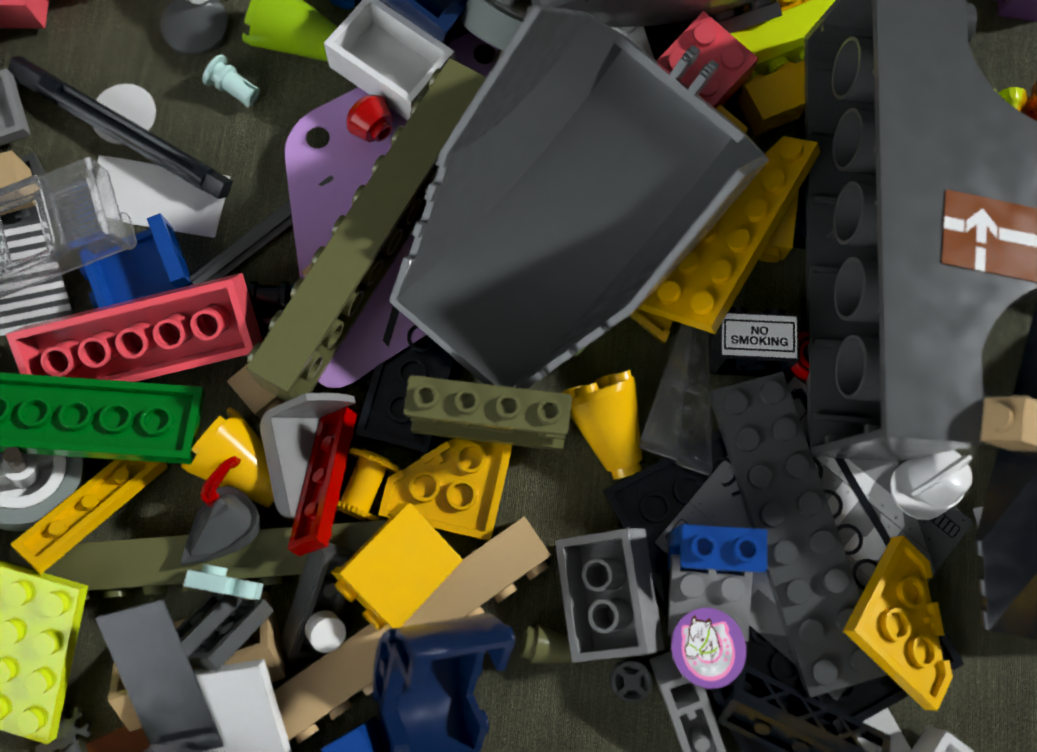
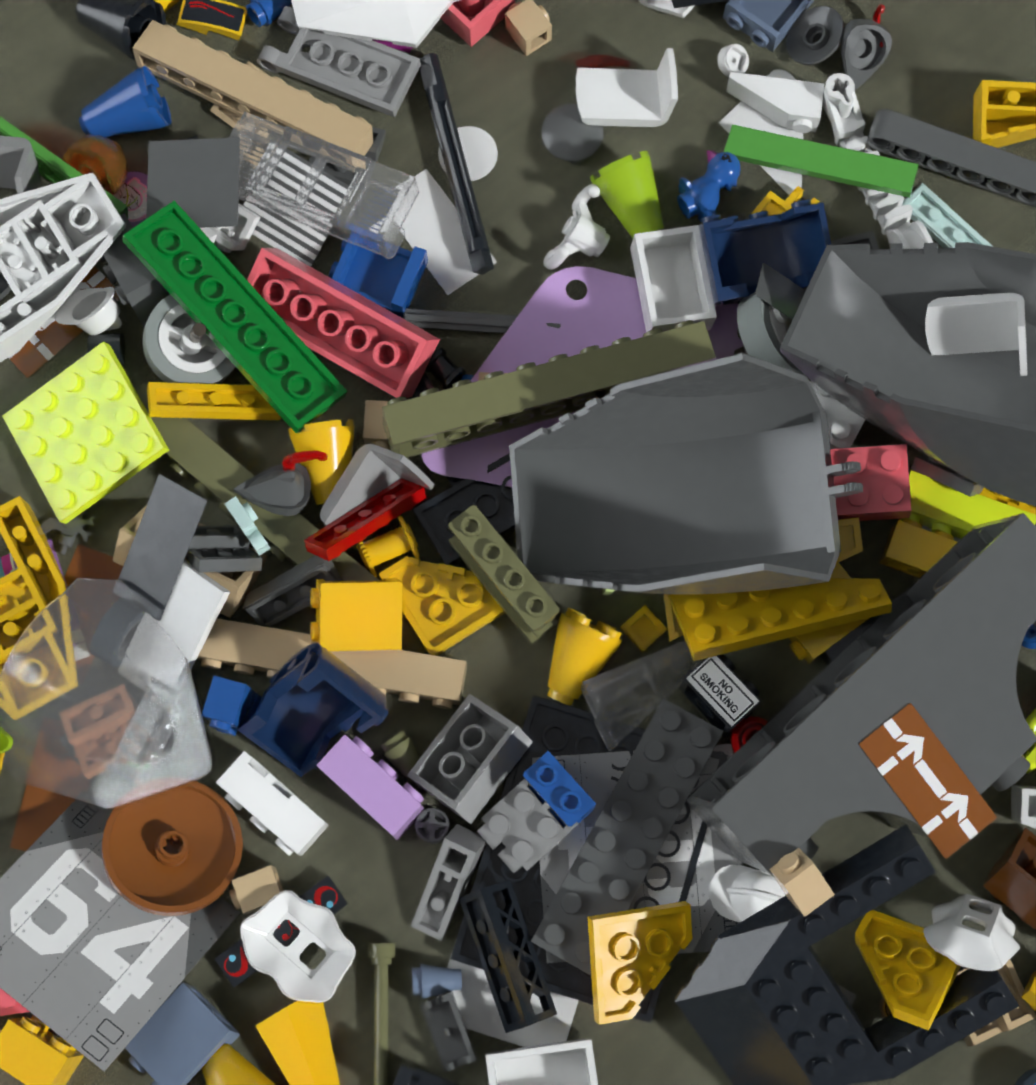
camera: 45 degrees right, 0 degrees up
(227, 79) = (556, 195): light aqua pin -> none
(275, 89) = (579, 232): none -> white piece
(325, 631) = (279, 612): white piece -> none
(370, 118) = (620, 311): red cone -> none
(553, 702) = (372, 785): none -> lavender piece
(634, 352) = (643, 628): none -> yellow tile
(708, 648) = (496, 846): sticker -> none

